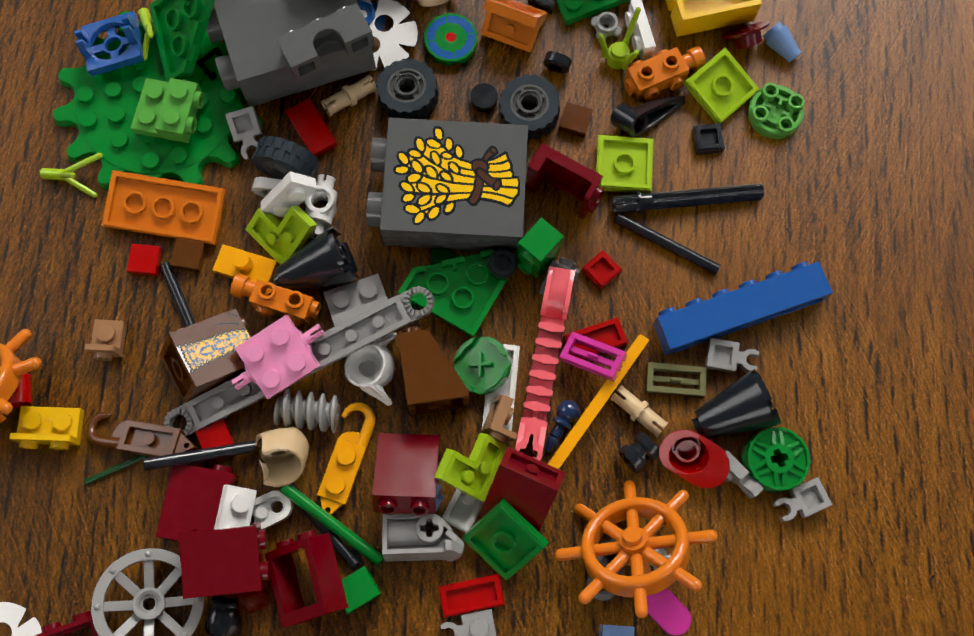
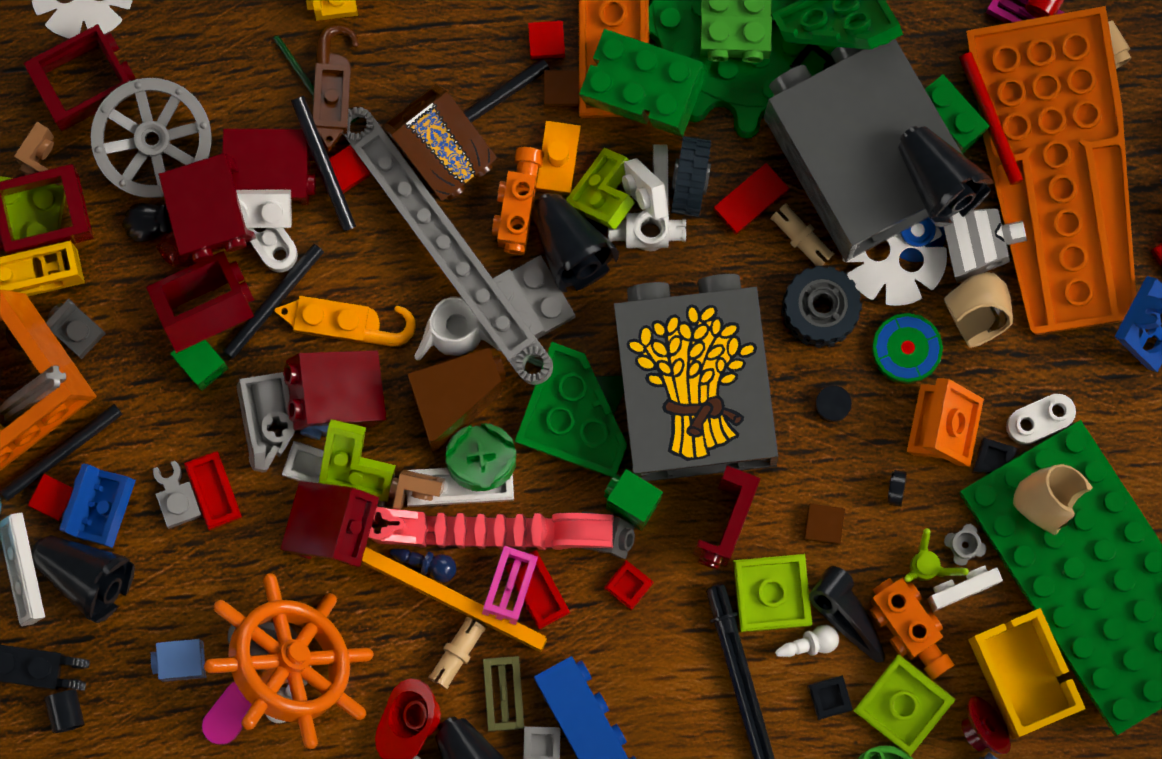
camera: 80 degrees right, 5 degrees up
(107, 339) = (442, 21): medium nougat bracket -> none
(196, 181) = (643, 78): none -> green piece
(244, 127) = (730, 120): light grey plate -> none
(277, 357) = (443, 218): bright pink plate -> none
(282, 455) = (335, 248): tan piece -> none
(307, 411) = (391, 265): light grey piece -> none
(332, 524) = (269, 317): green bar -> none
(344, 27) = (818, 165): dark grey arch -> none
(502, 264) = (608, 459): black tile -> none
(505, 539) = (277, 514): green tile -> none
(535, 91) = (828, 440): black wheel -> none
(639, 452) = (405, 658): black wheel -> none
(664, 140) = (822, 640): none -> white bar
(667, 243) = (677, 662): black bar -> none

